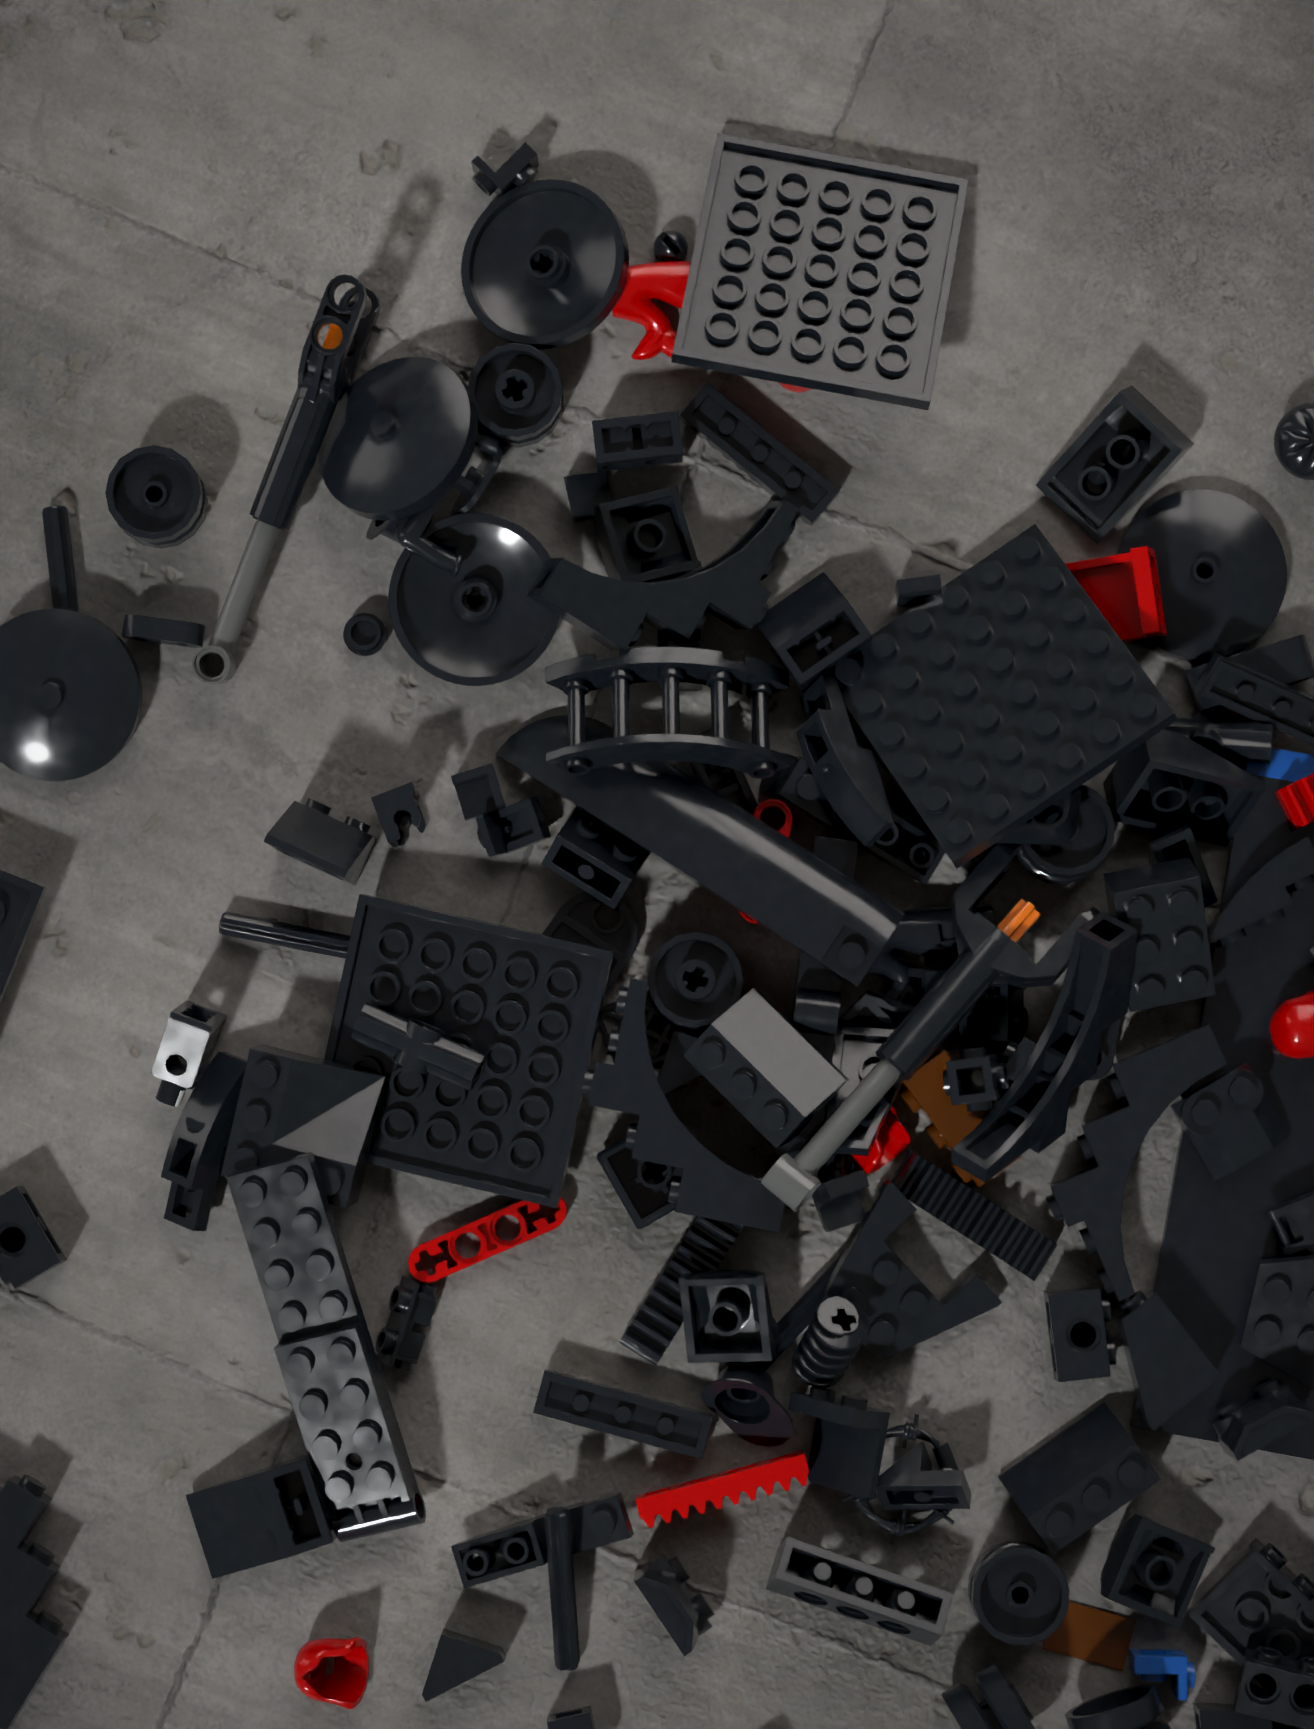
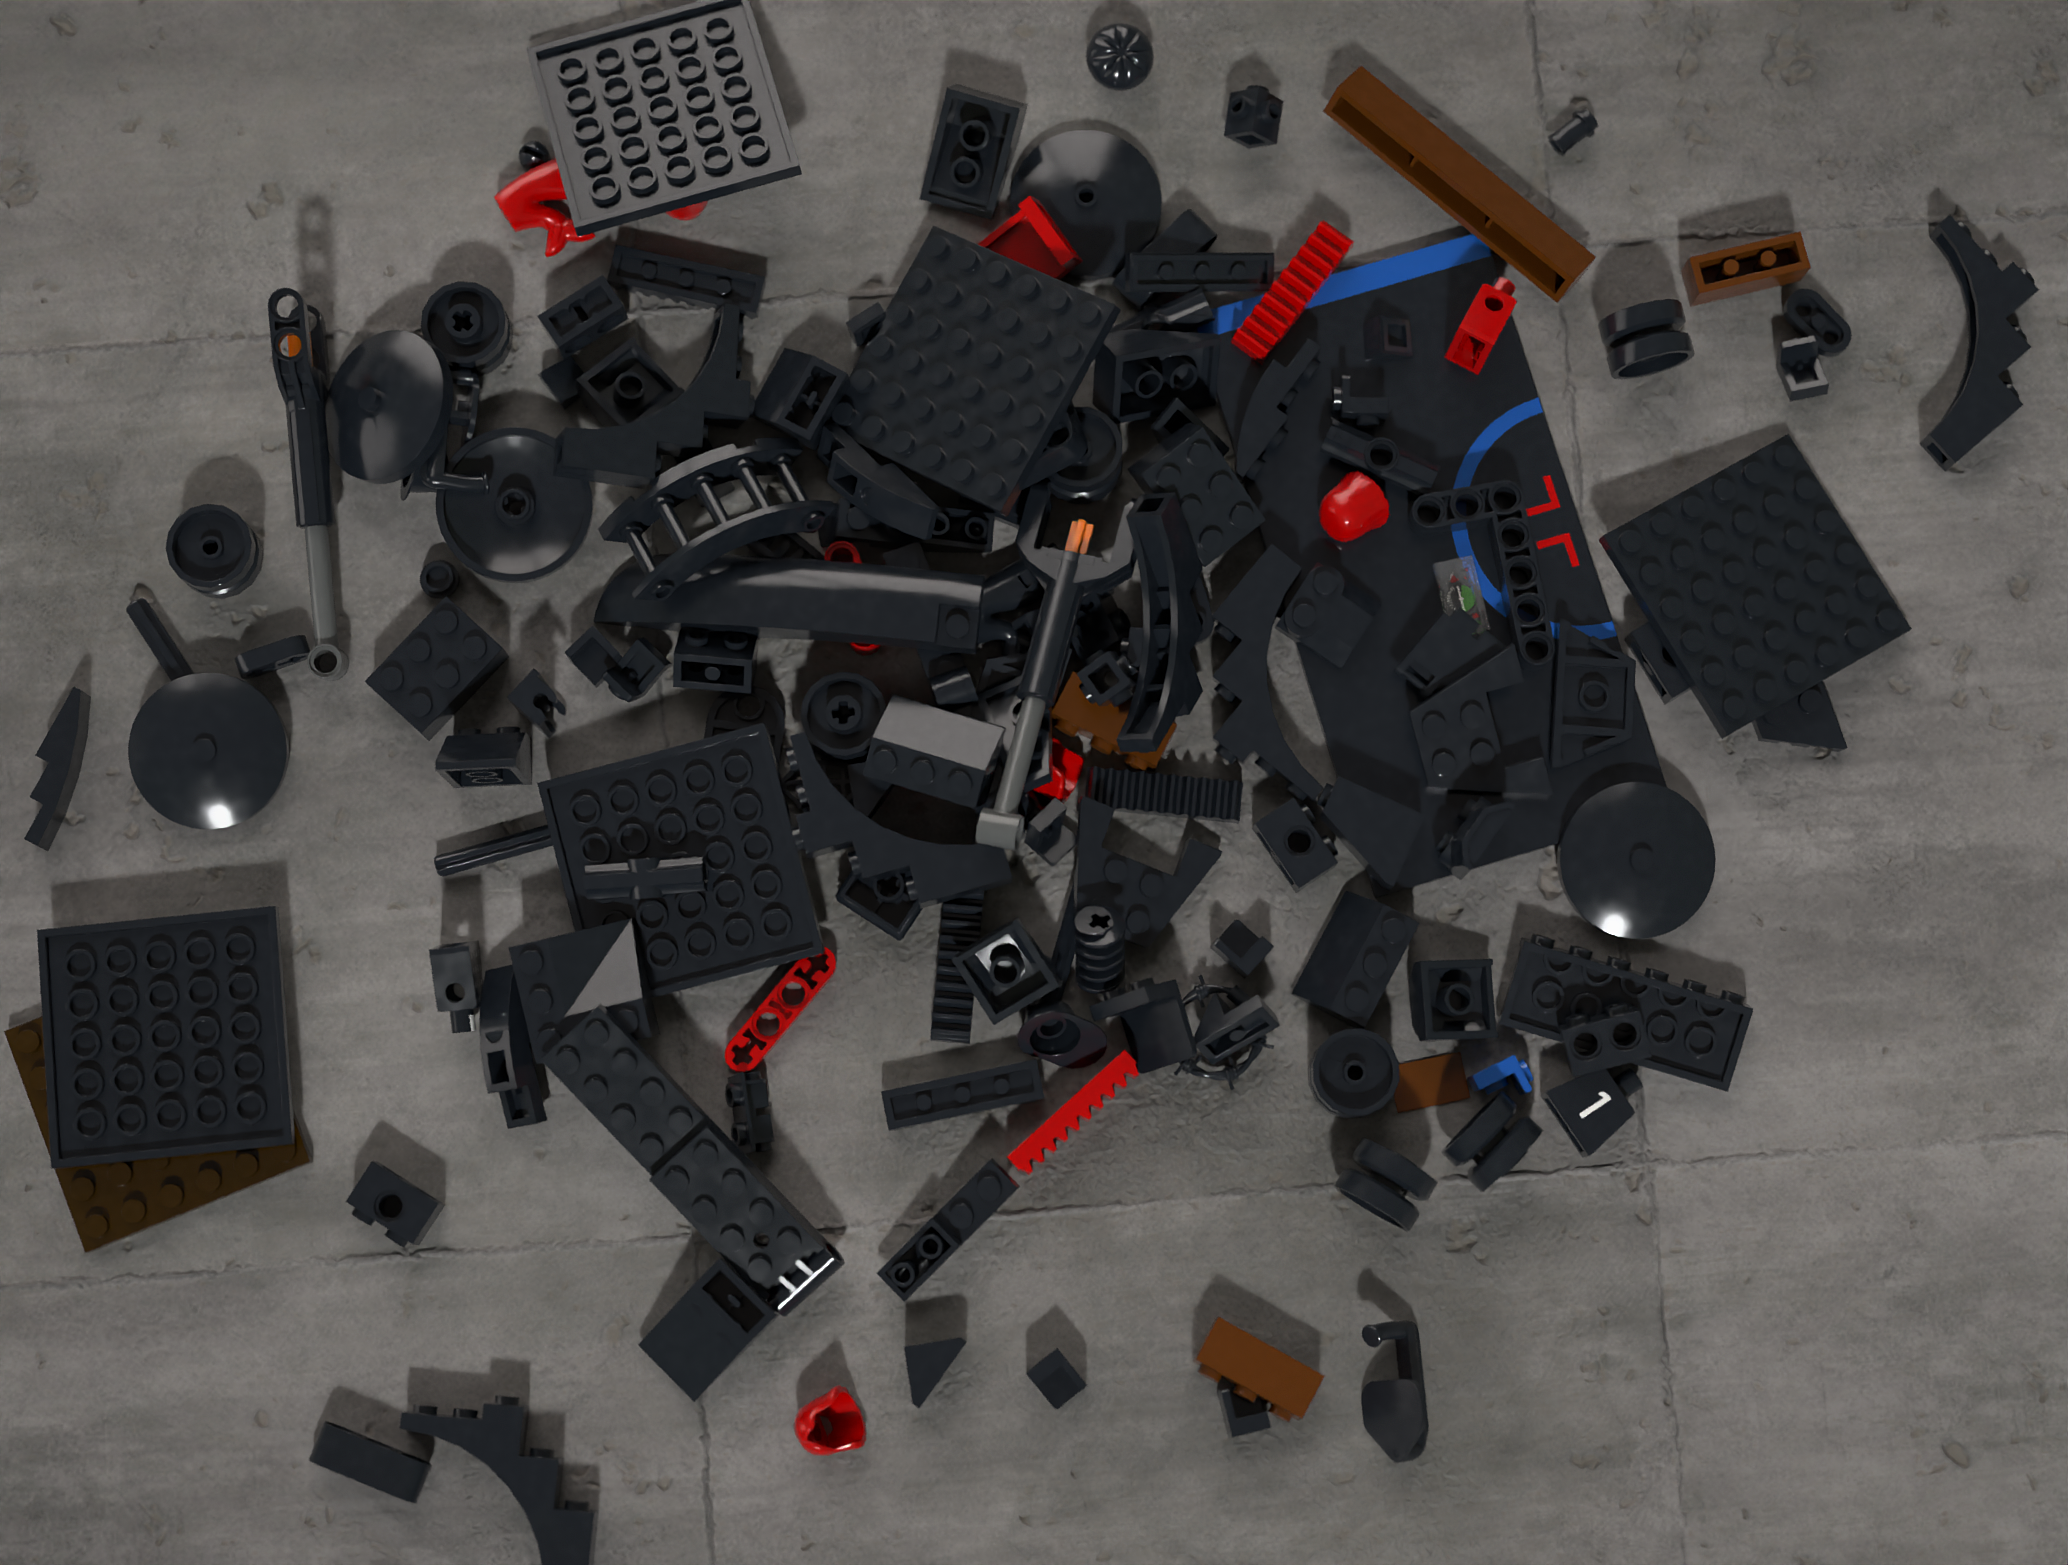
camera: 30 degrees left, 5 degrees down
(317, 726) = (437, 668): none -> black brick
(513, 173) = (378, 158): black bracket -> none
(545, 264) = (438, 214): black dish -> none
(562, 1588) = (984, 1259): black axle -> none
(672, 1601) = (1090, 1229): black slope -> none
(859, 1591) = (1225, 1138): black brick -> none
(972, 1408) = (1241, 948): none -> black panel

